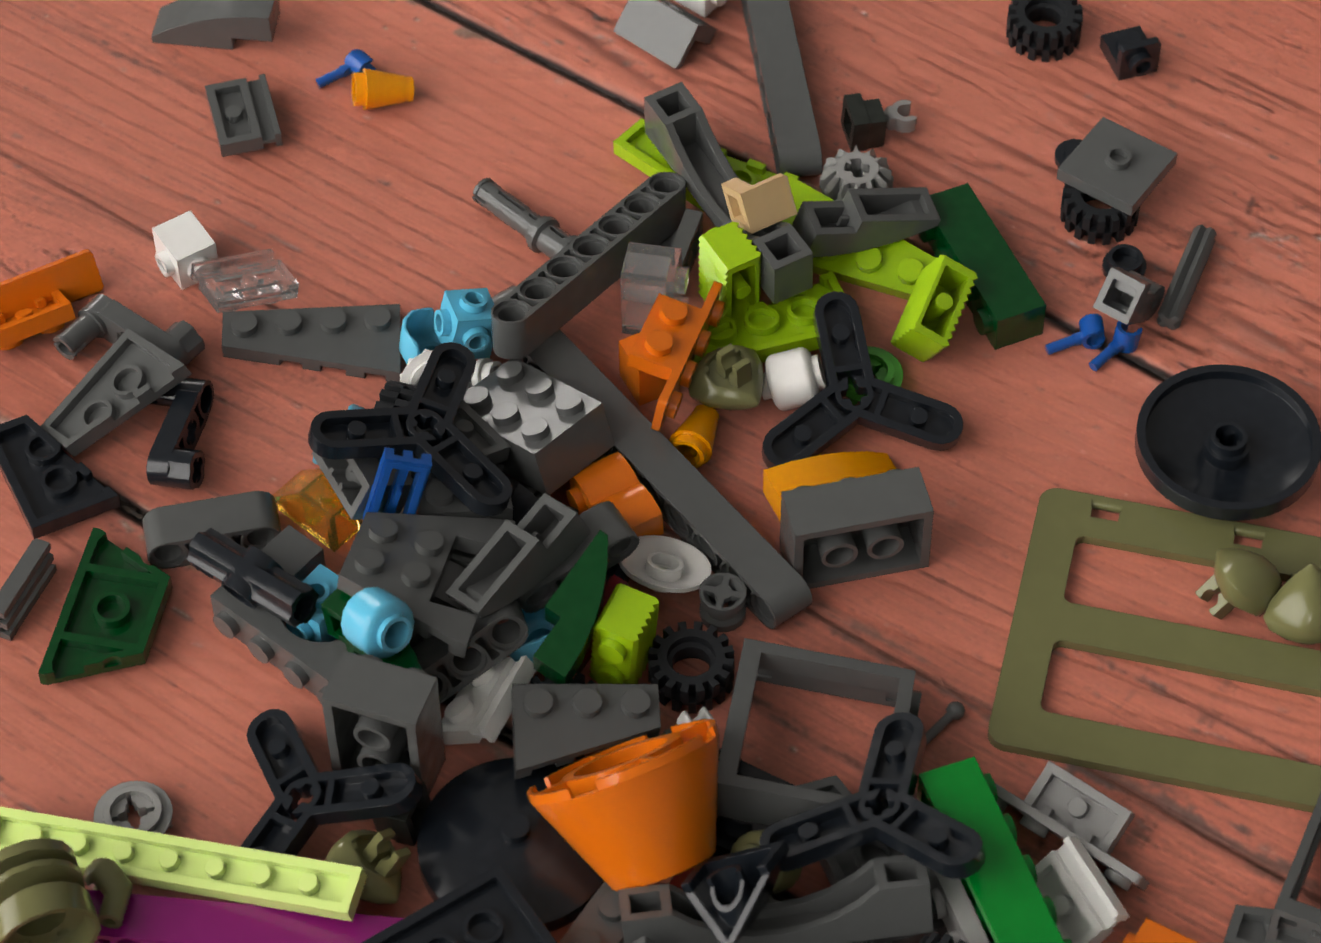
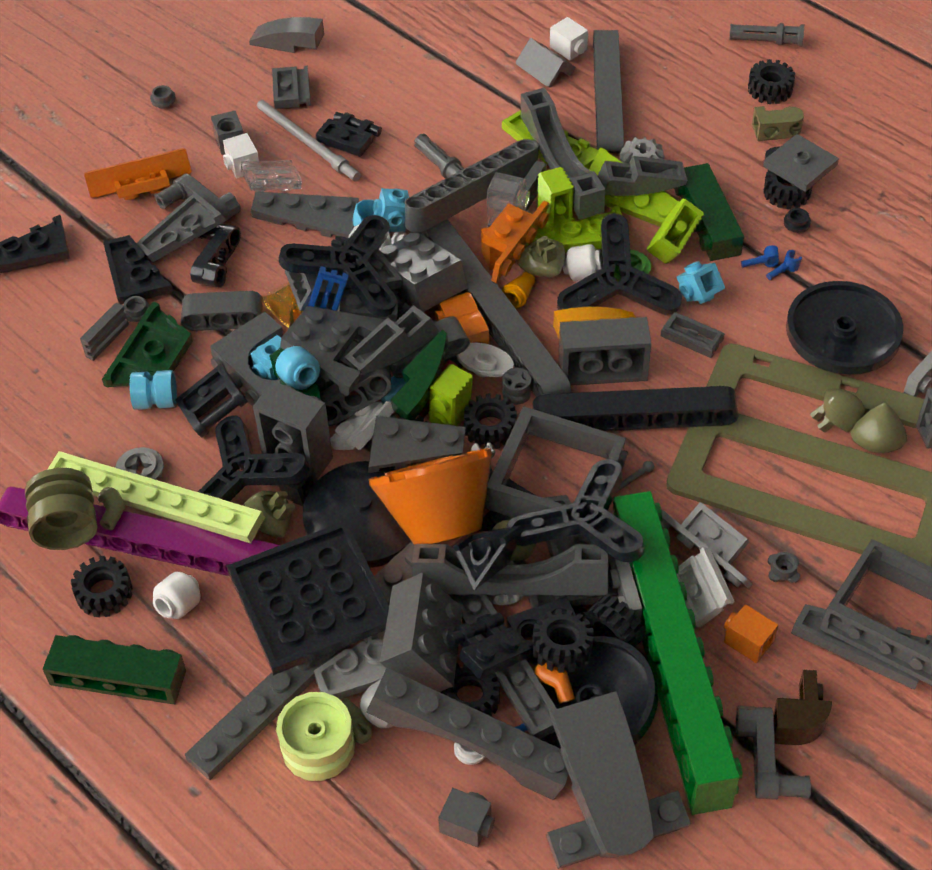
camera: 10 degrees right, 0 degrees up
(24, 156) = (162, 96): none -> dark grey plate
(66, 542) = (135, 308): none -> dark grey plate
(129, 681) = (151, 390): none -> medium azure wheel
(150, 204) = (226, 126): none -> dark grey brick
(220, 679) = (207, 394): none -> black plate
(252, 577) = (234, 337): black piece -> none
(351, 244) = (337, 162): none -> light grey bar
(354, 62) = (362, 65): blue hand -> none
(358, 190) = (348, 133): none -> black plate
(380, 89) = (373, 80): light orange cone -> none
(759, 204) = (578, 157): tan panel -> none
(866, 121) = (654, 124): pearl dark grey piece -> none
(932, 616) = (644, 408): none -> black beam
(984, 485) = (690, 337): none -> dark grey tile
(988, 391) = (700, 282): none -> medium azure brick
(1065, 98) = (777, 123): none -> olive leg
(1129, 296) = (796, 237): dark grey leg -> none
(1131, 52) = (821, 103): black bracket -> none
(1186, 277) = (834, 231): dark grey axle -> none
(1194, 838) = (787, 561): none -> dark grey plate

